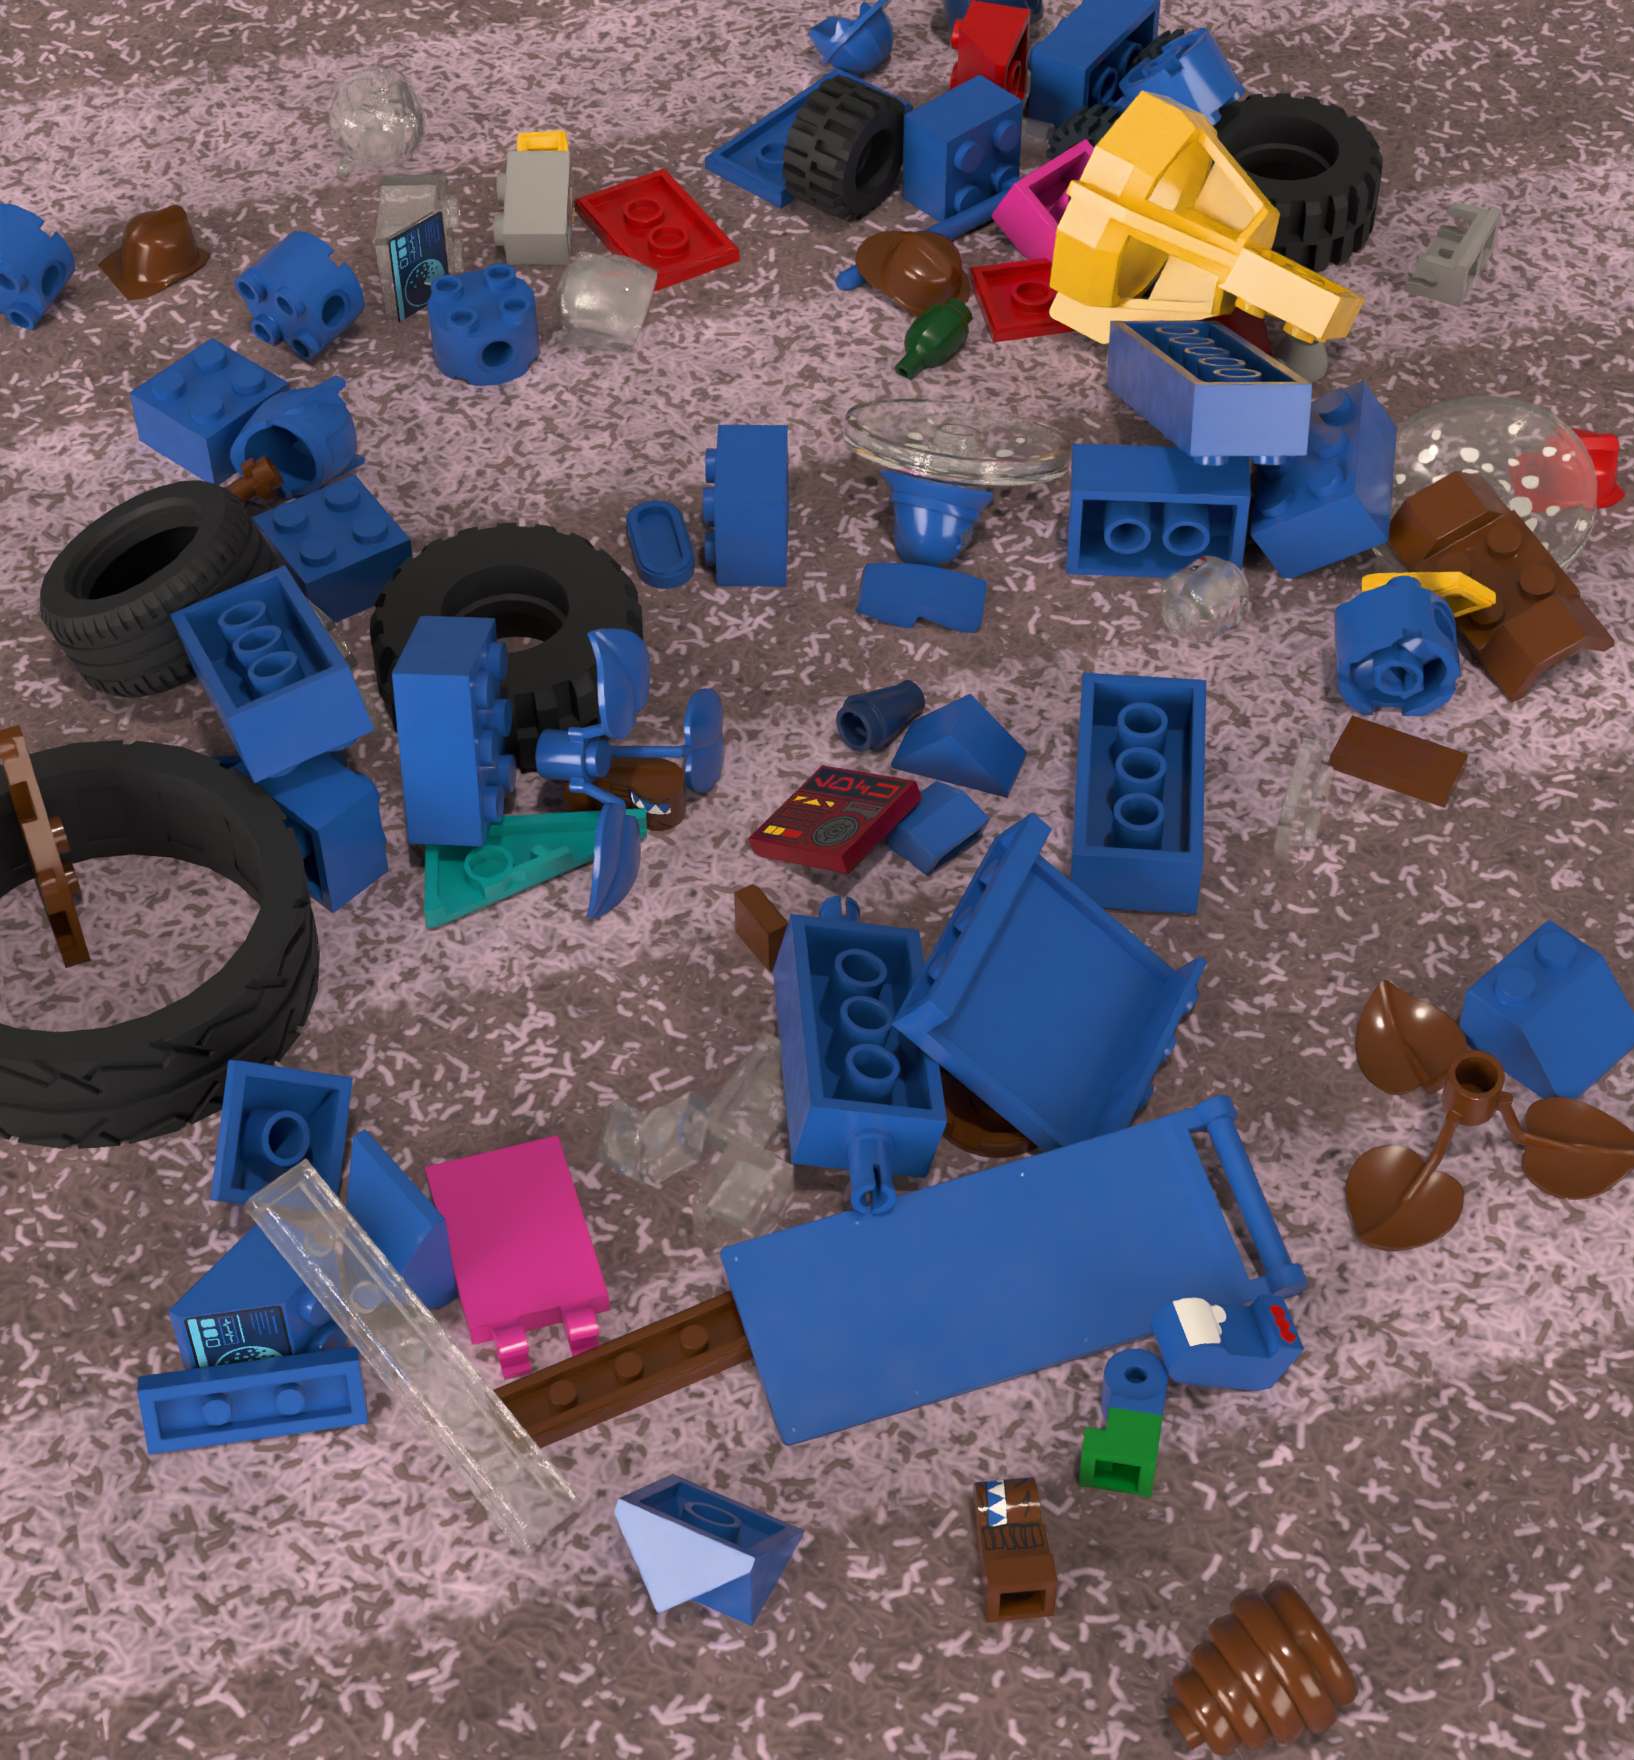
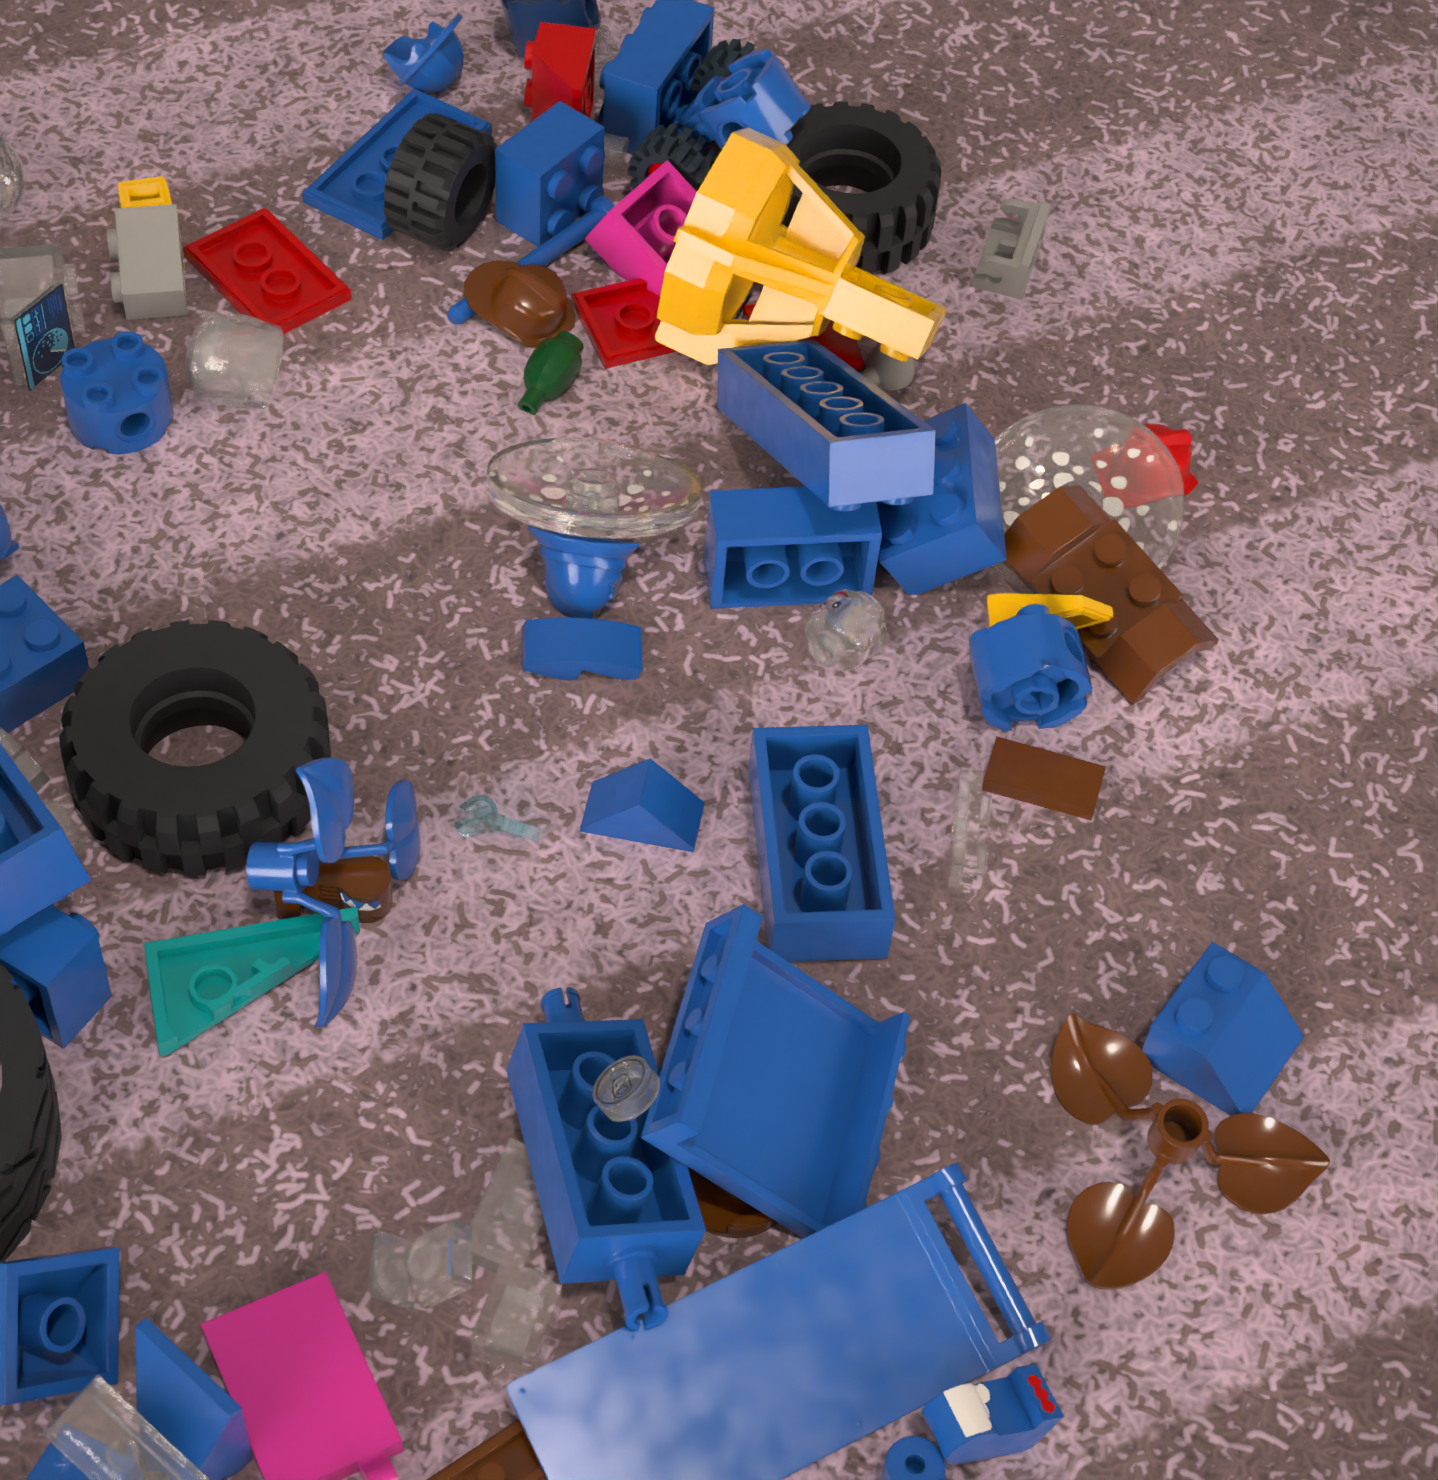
camera: 15 degrees left, 5 degrees up
(453, 730) = (164, 859): blue brick -> none
(660, 544) = (323, 613): blue tile -> none
(748, 505) = (407, 573): blue brick -> none
(759, 924) = (487, 1023): reddish brown tile -> none
(793, 741) = (488, 817): none -> clear light blue hand
(835, 819) = (539, 898): tile -> none
(877, 715) = (559, 782): dark blue cone -> none
(884, 978) = (626, 1088): none -> clear tile
(937, 827) = (632, 893): blue piece -> none

